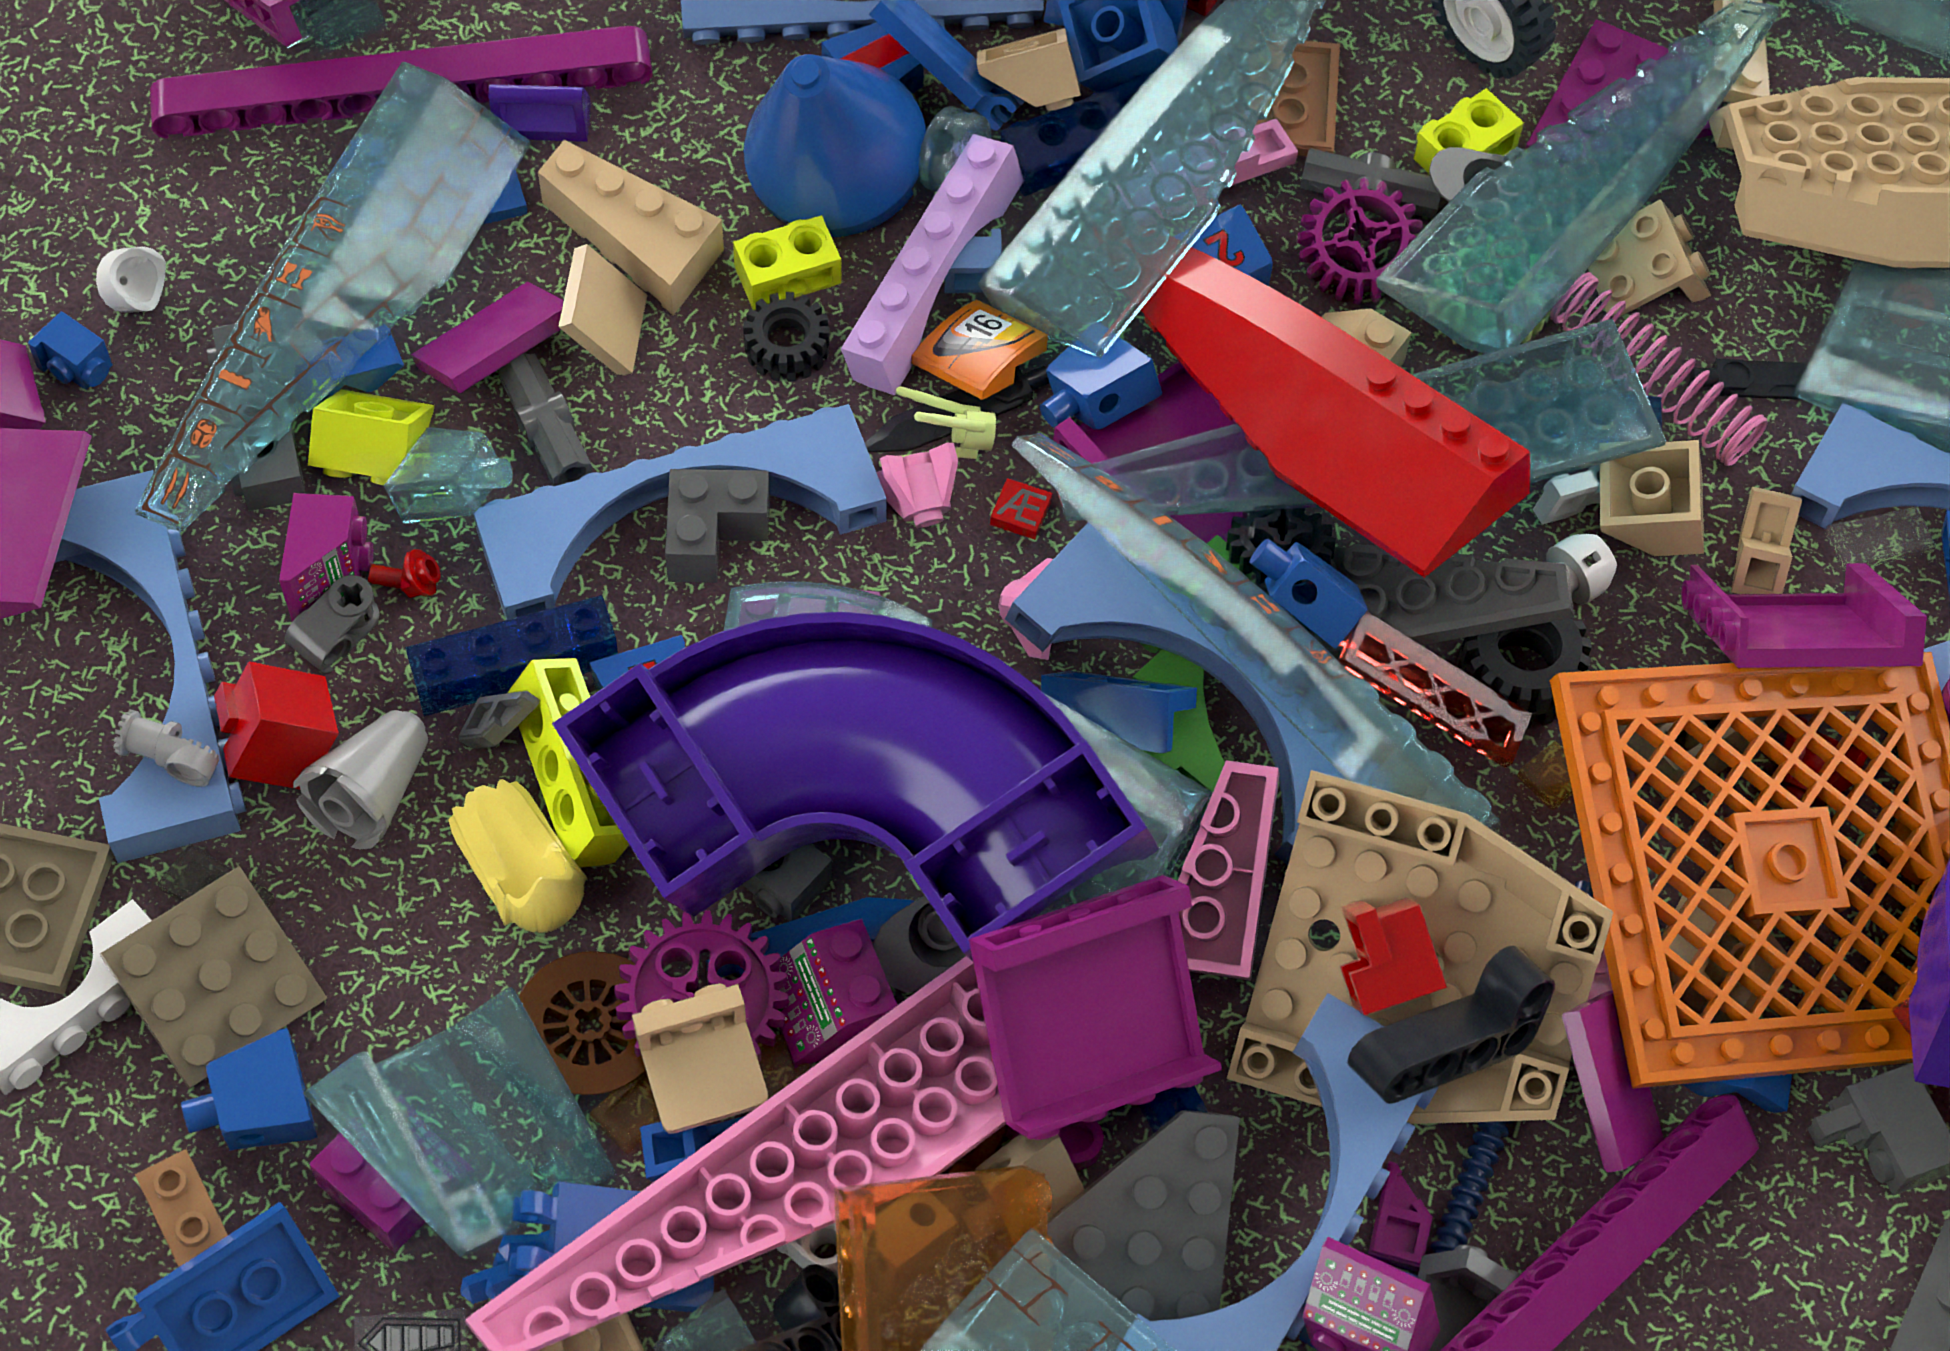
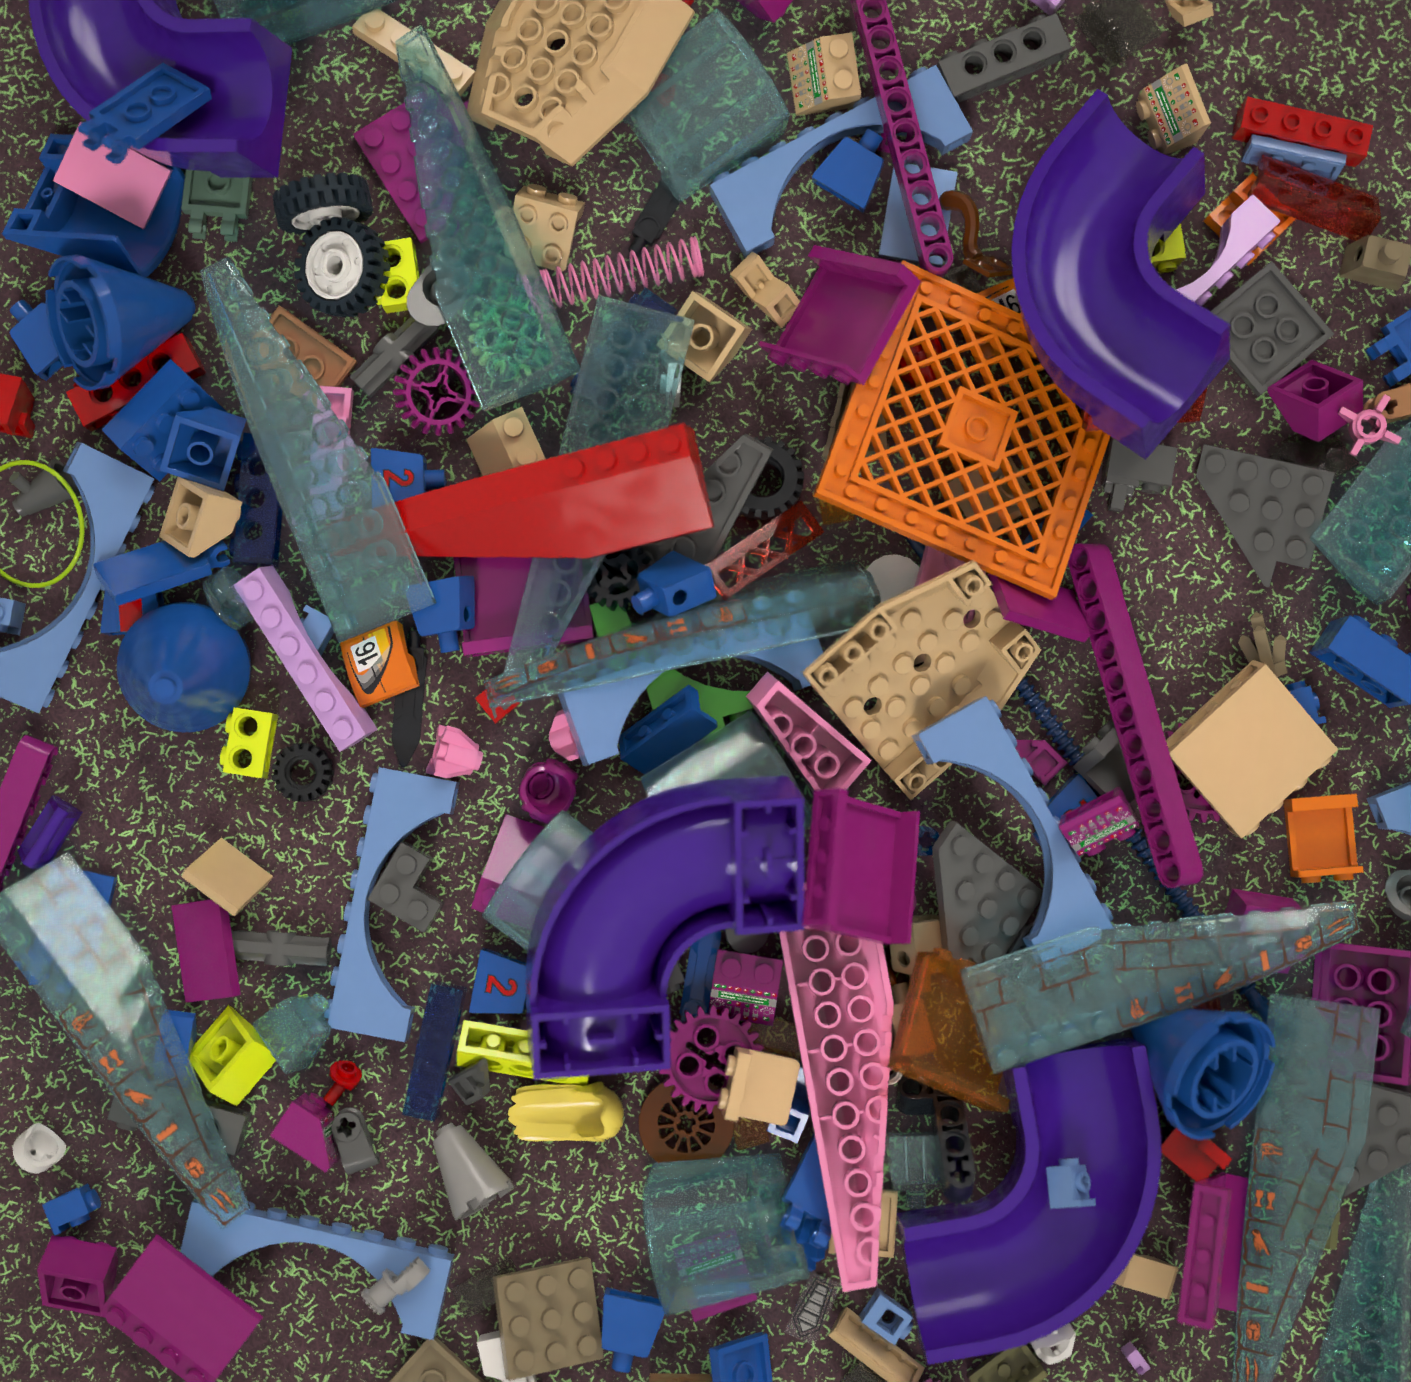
camera: 60 degrees left, 25 degrees up
(276, 723) = (410, 1212): red plate -> none
(633, 223) = (176, 818): tan wedge -> none
(952, 603) = (547, 789): none -> magenta hair
(969, 425) = (433, 703): yellowish green plant -> none
(1393, 955) = (919, 689): red plate -> none
(1433, 71) = (342, 267): none -> wheel
(1459, 1035) = (985, 686): black beam -> none
(1585, 581) = (723, 411): white piece -> none
(1880, 538) = (797, 220): clear tile -> none

